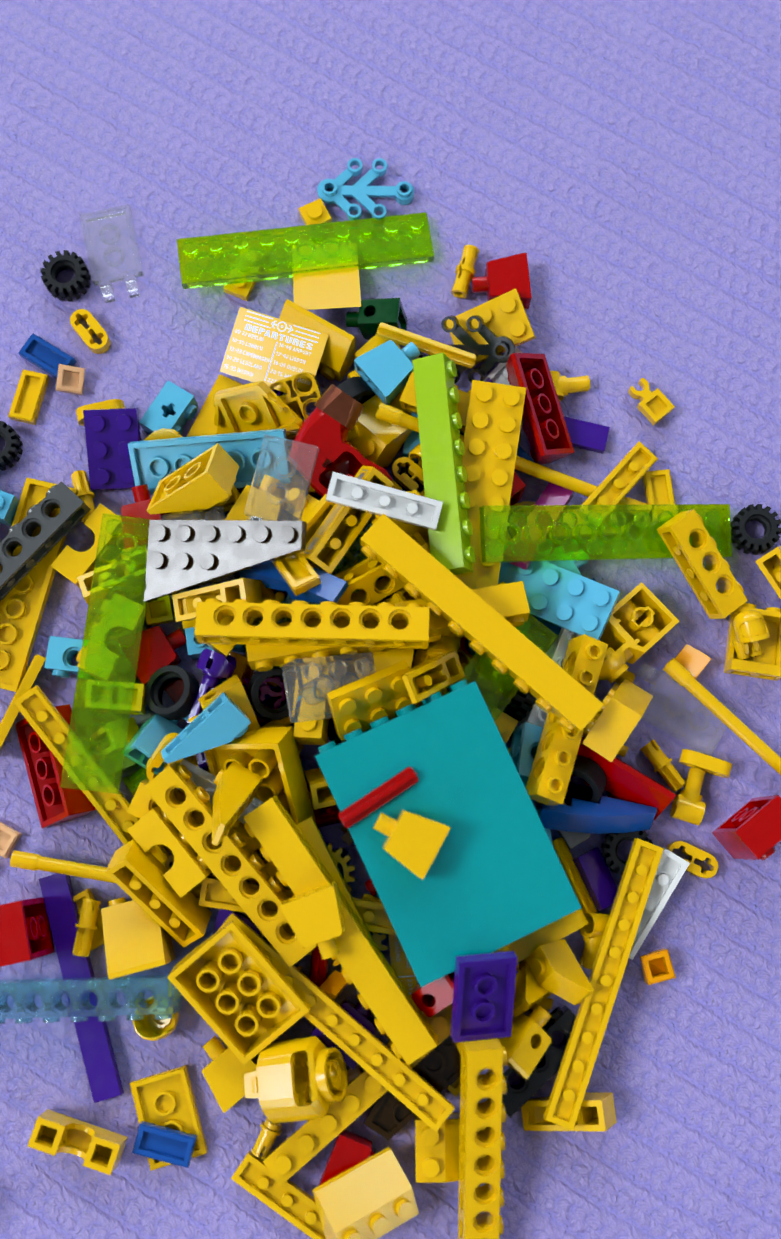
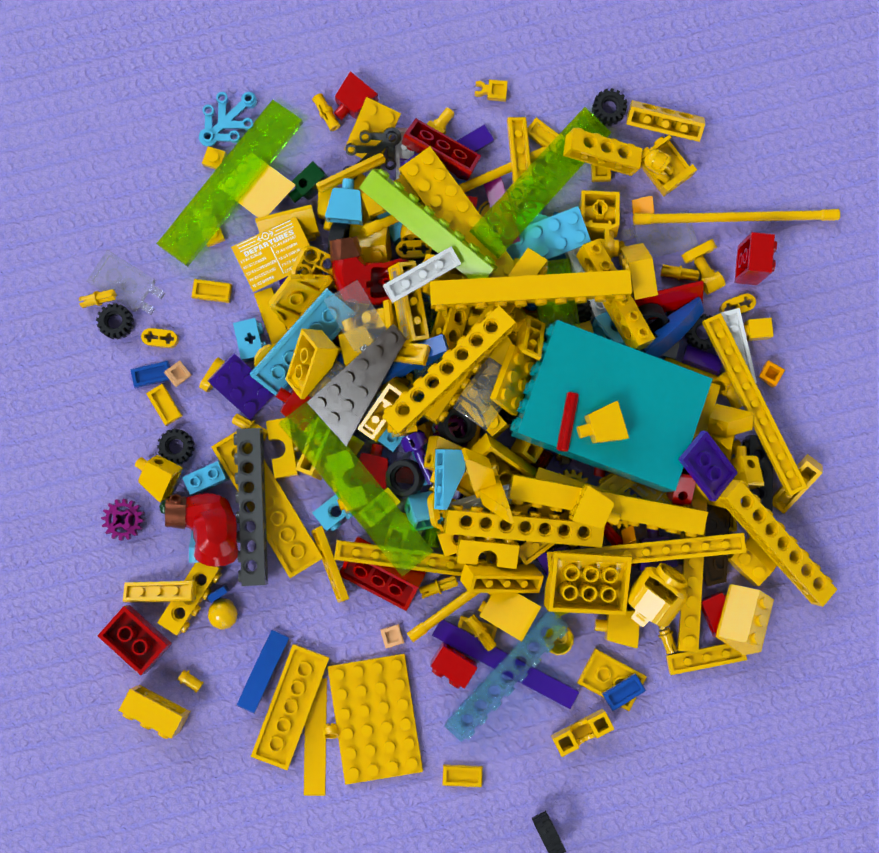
camera: 45 degrees left, 5 degrees up
(71, 239) = (97, 298): none -> yellow axle
(95, 835) = (438, 586): none -> yellow axle
(184, 334) = (211, 291): none -> yellow tile
(242, 755) = (479, 469): none -> yellow slope
(678, 586) = (600, 174): none -> yellow plate
(689, 906) = (758, 329): none -> yellow brick

